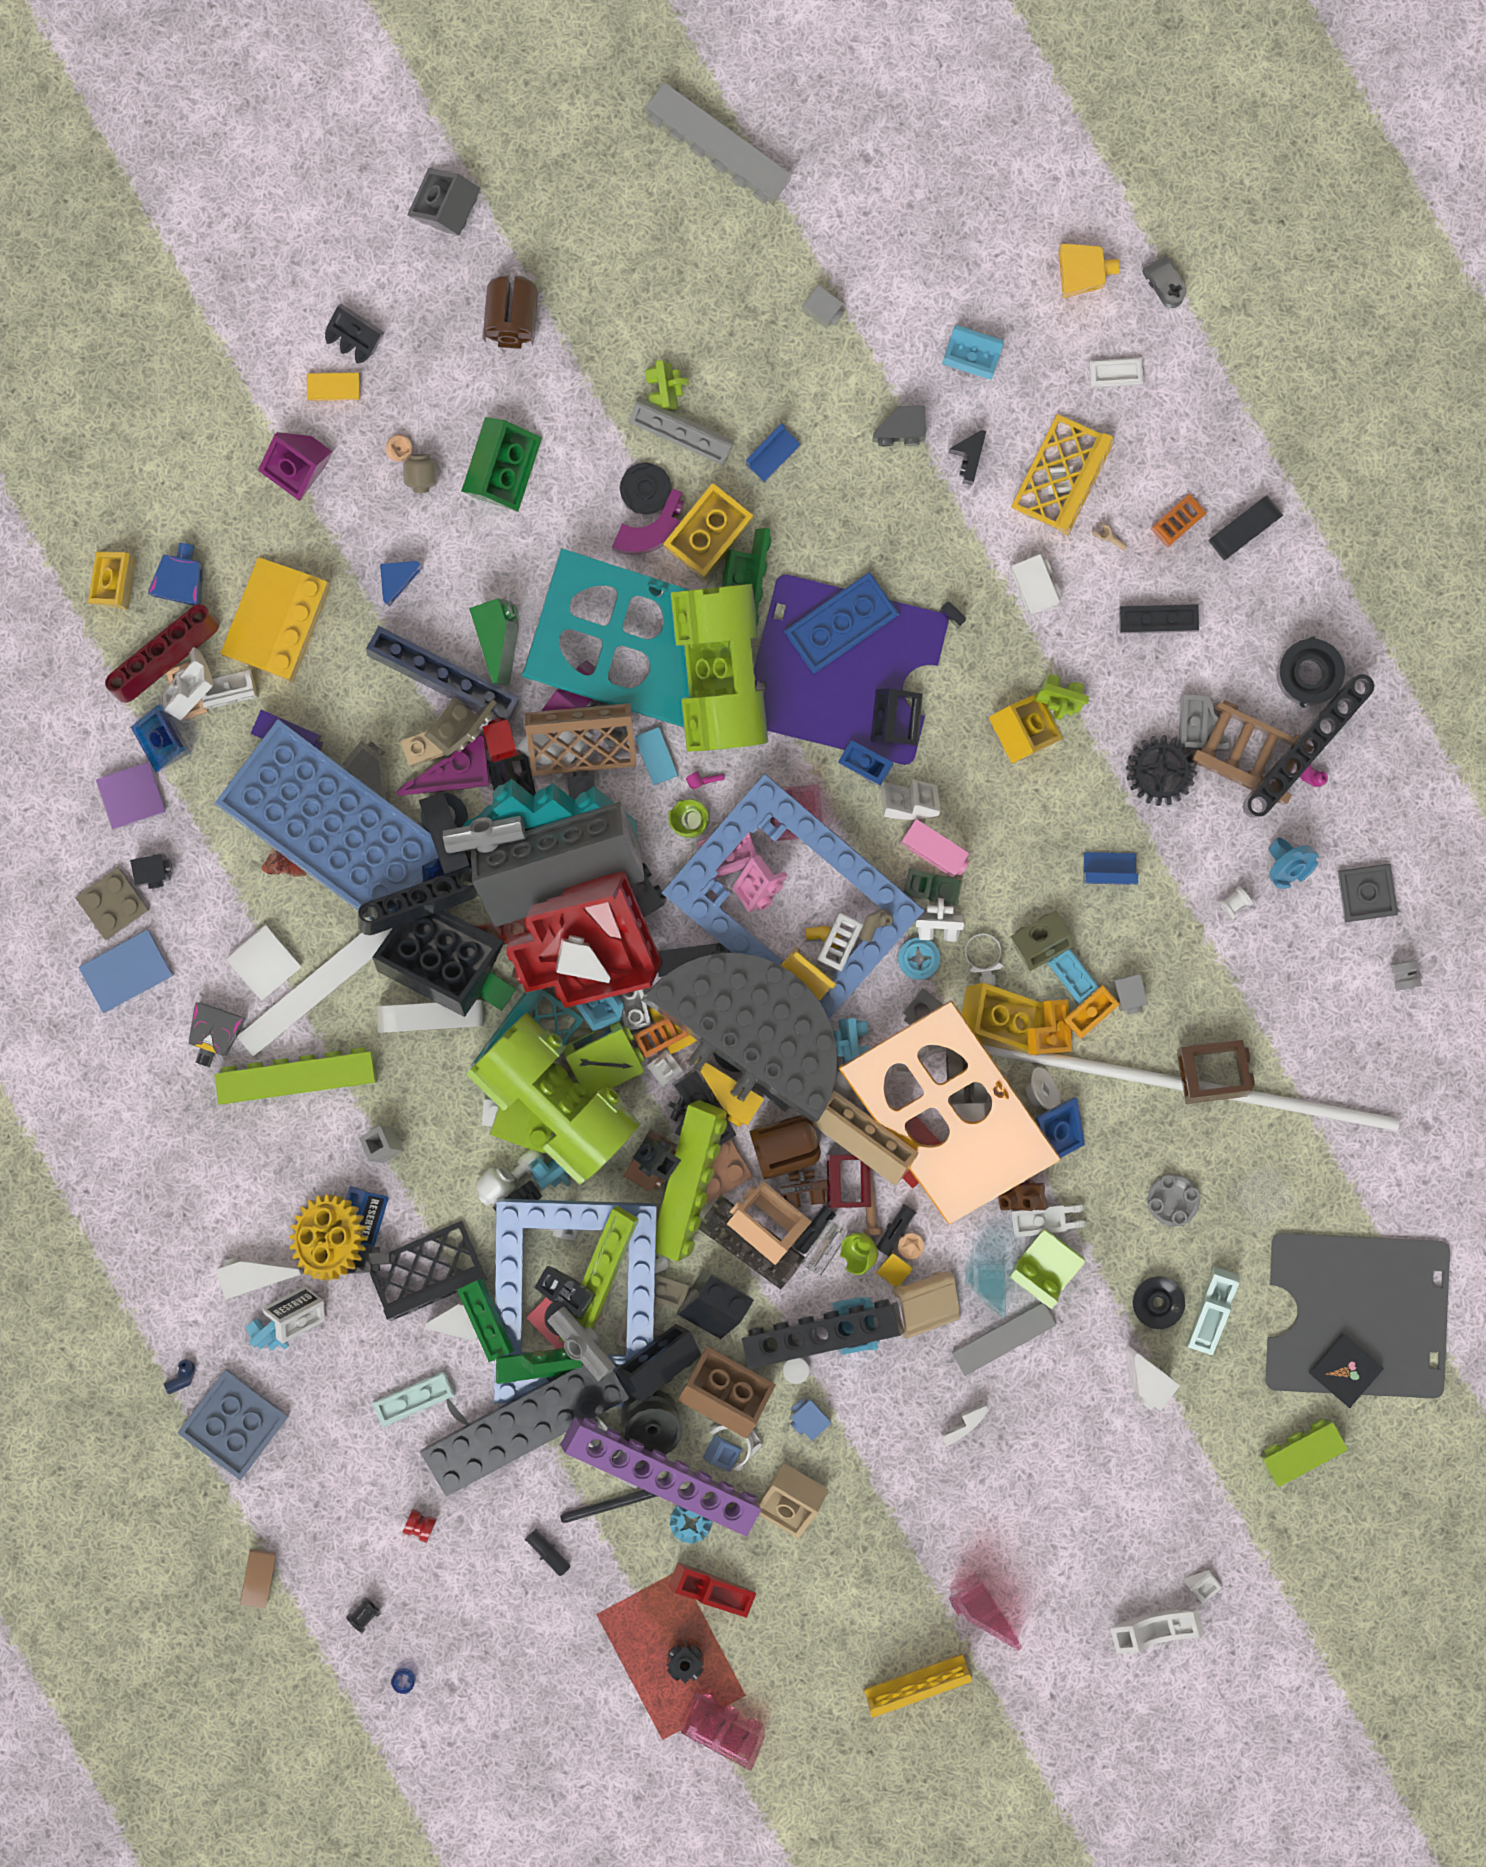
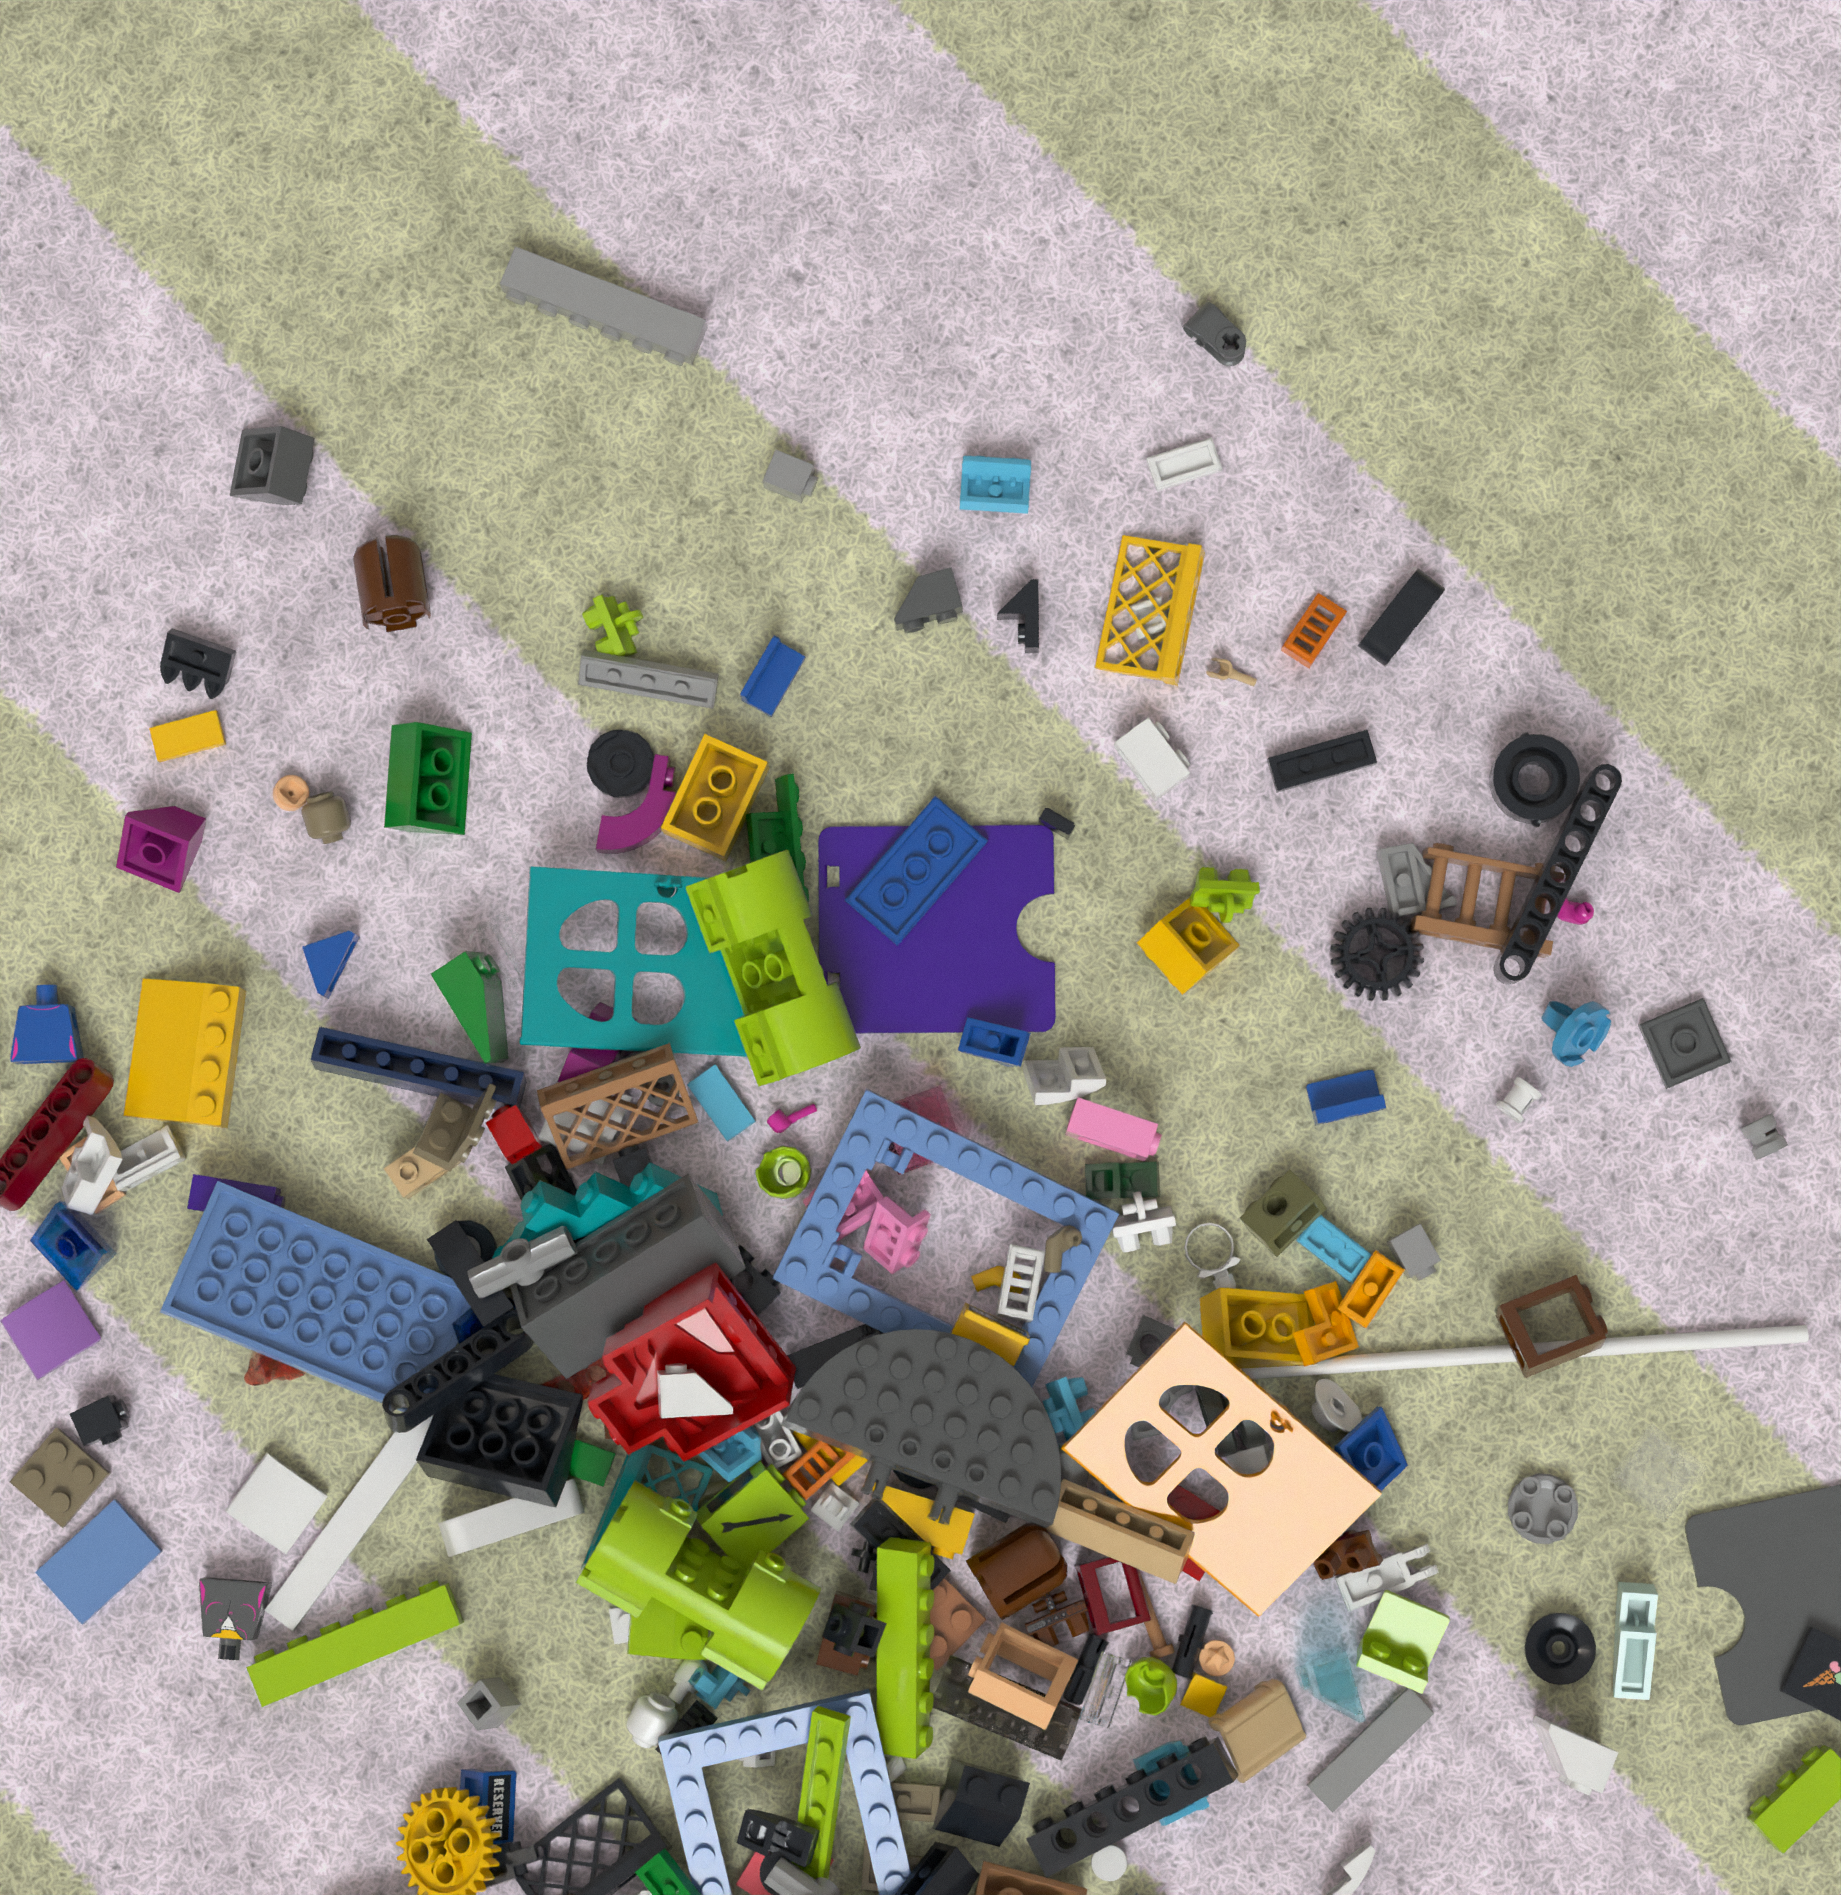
camera: 10 degrees left, 5 degrees down
(370, 767) = (354, 1213): clear smoke slope -> none
(457, 772) = (470, 1188): magenta wing -> none
(885, 716) = (1003, 973): black tile -> none
(927, 949) = (1122, 1293): medium azure gear -> none
(1084, 268) = (1108, 344): yellow torso -> none

